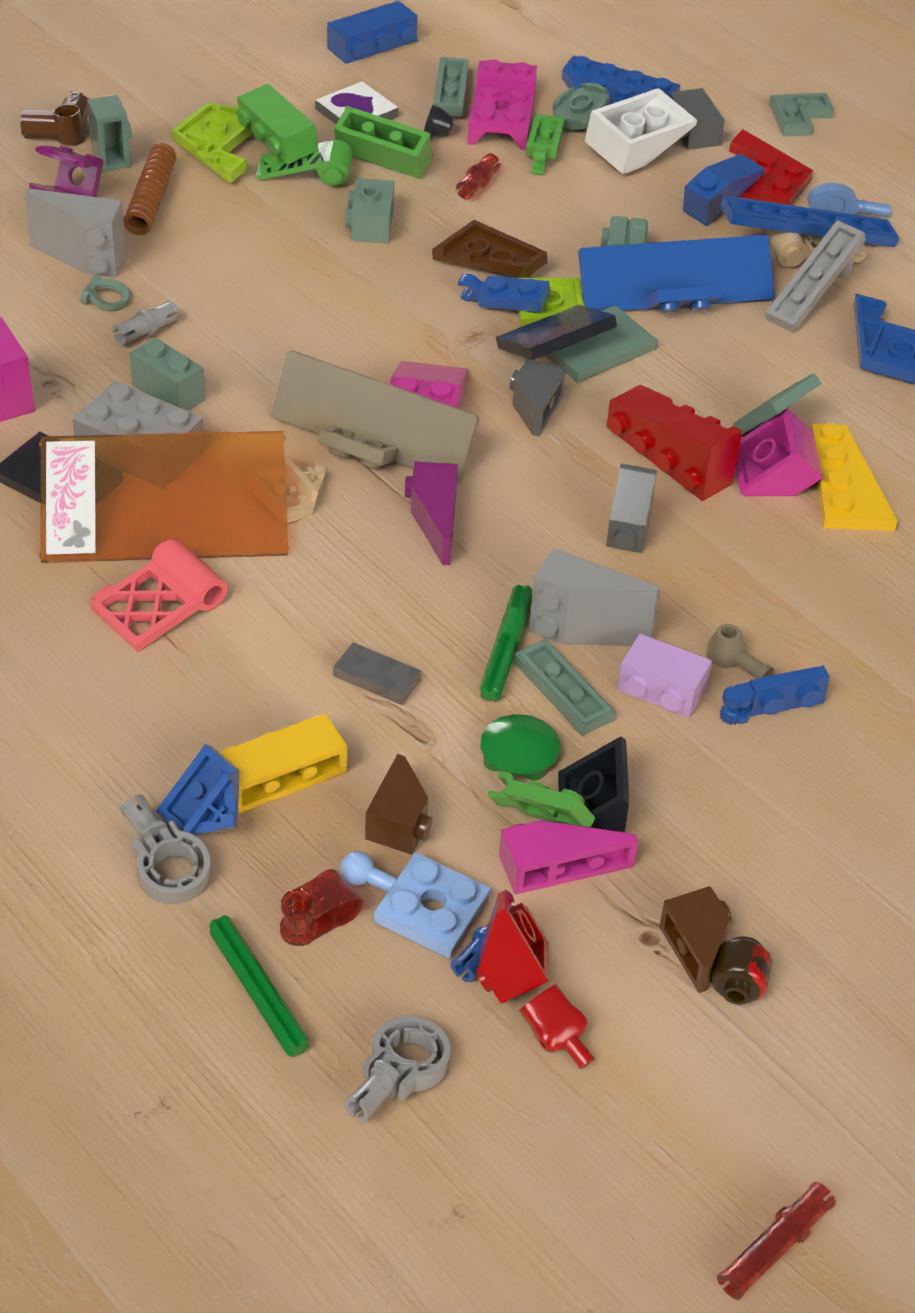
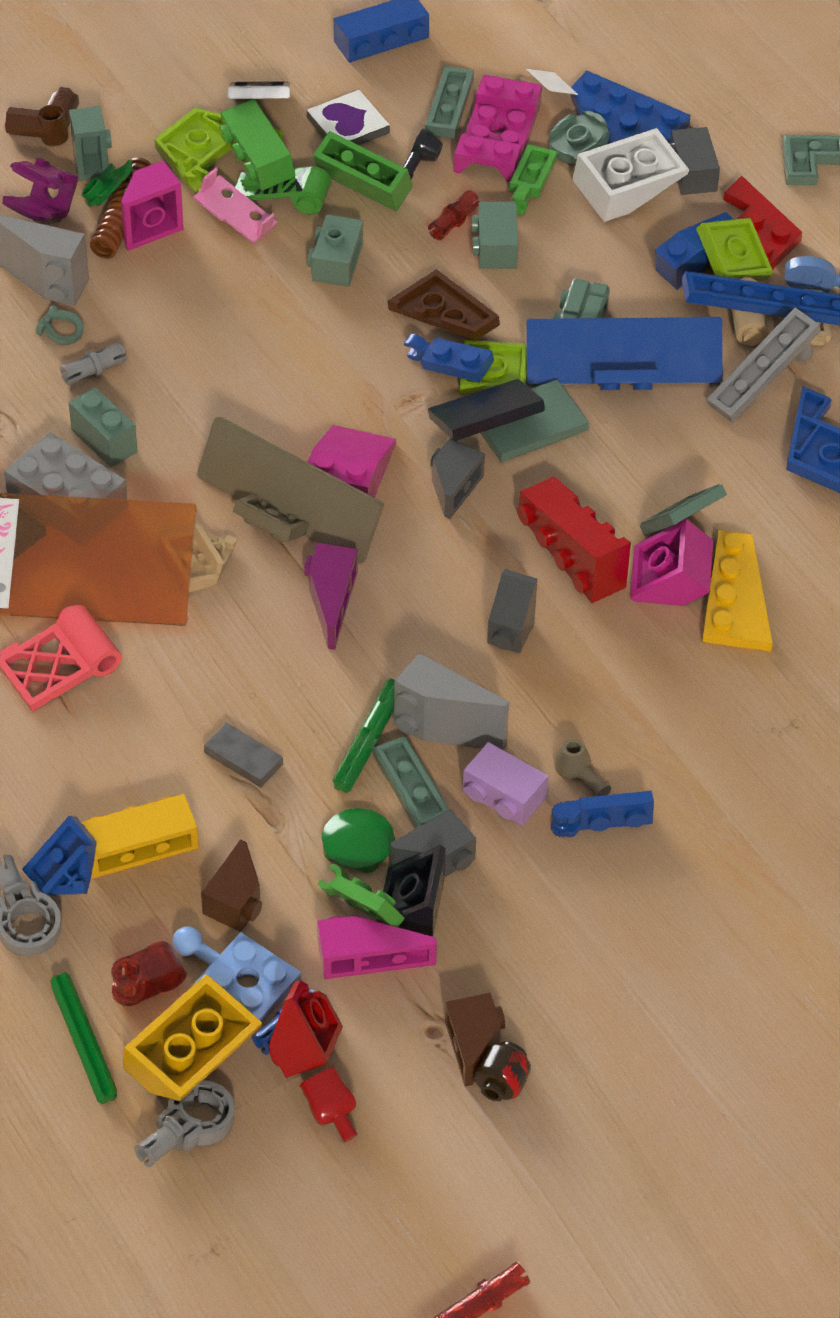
camera: 10 degrees right, 5 degrees up
(124, 173) = (101, 187): none -> green plate
(182, 180) = (151, 206): none -> dark pink slope
(262, 184) = (233, 210): none -> bright pink piece
(279, 79) = (259, 90): none -> tile
(385, 974) = (189, 1040): none -> yellow slope
(524, 189) = (496, 235): none -> sand green brick
(544, 65) = (551, 81): none -> white sticker
(605, 728) = (442, 830): none -> dark grey slope
(758, 179) = (734, 249): none -> lime tile

